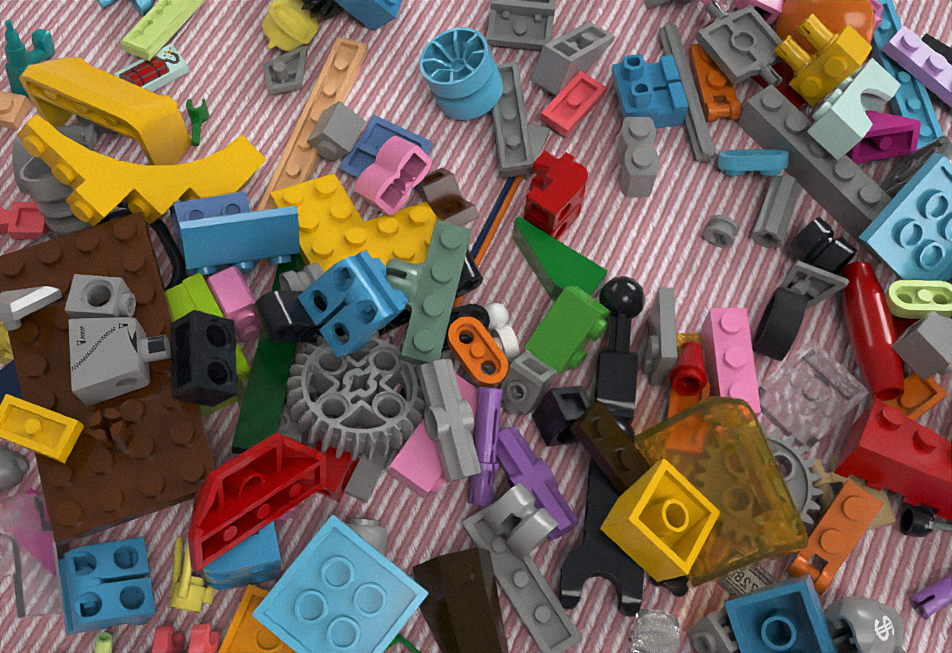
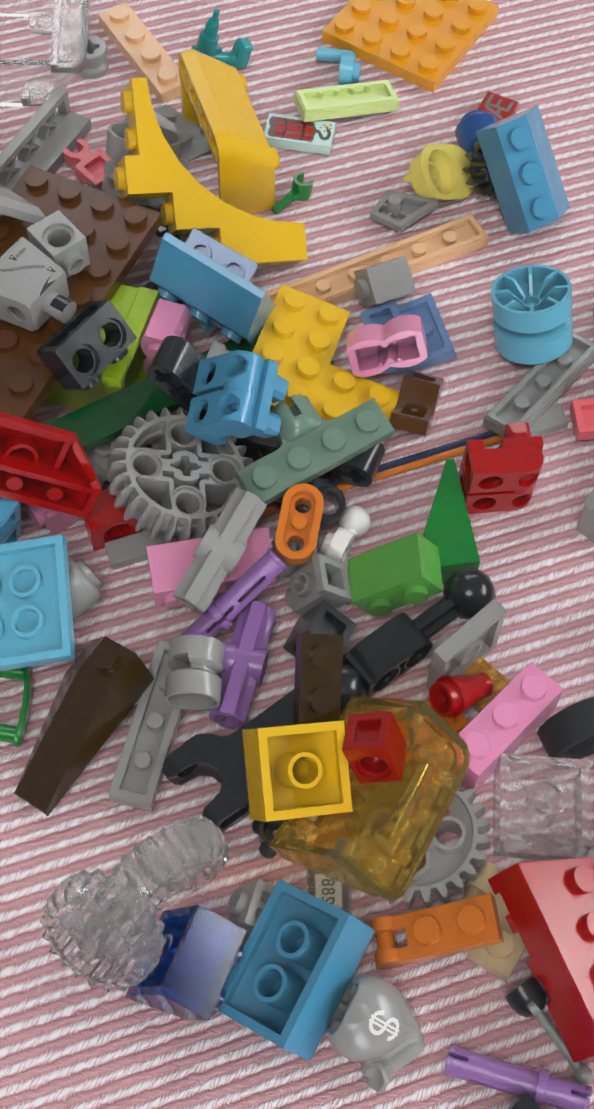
camera: 45 degrees right, 5 degrees down
(693, 456) = (375, 747): none -> red brick

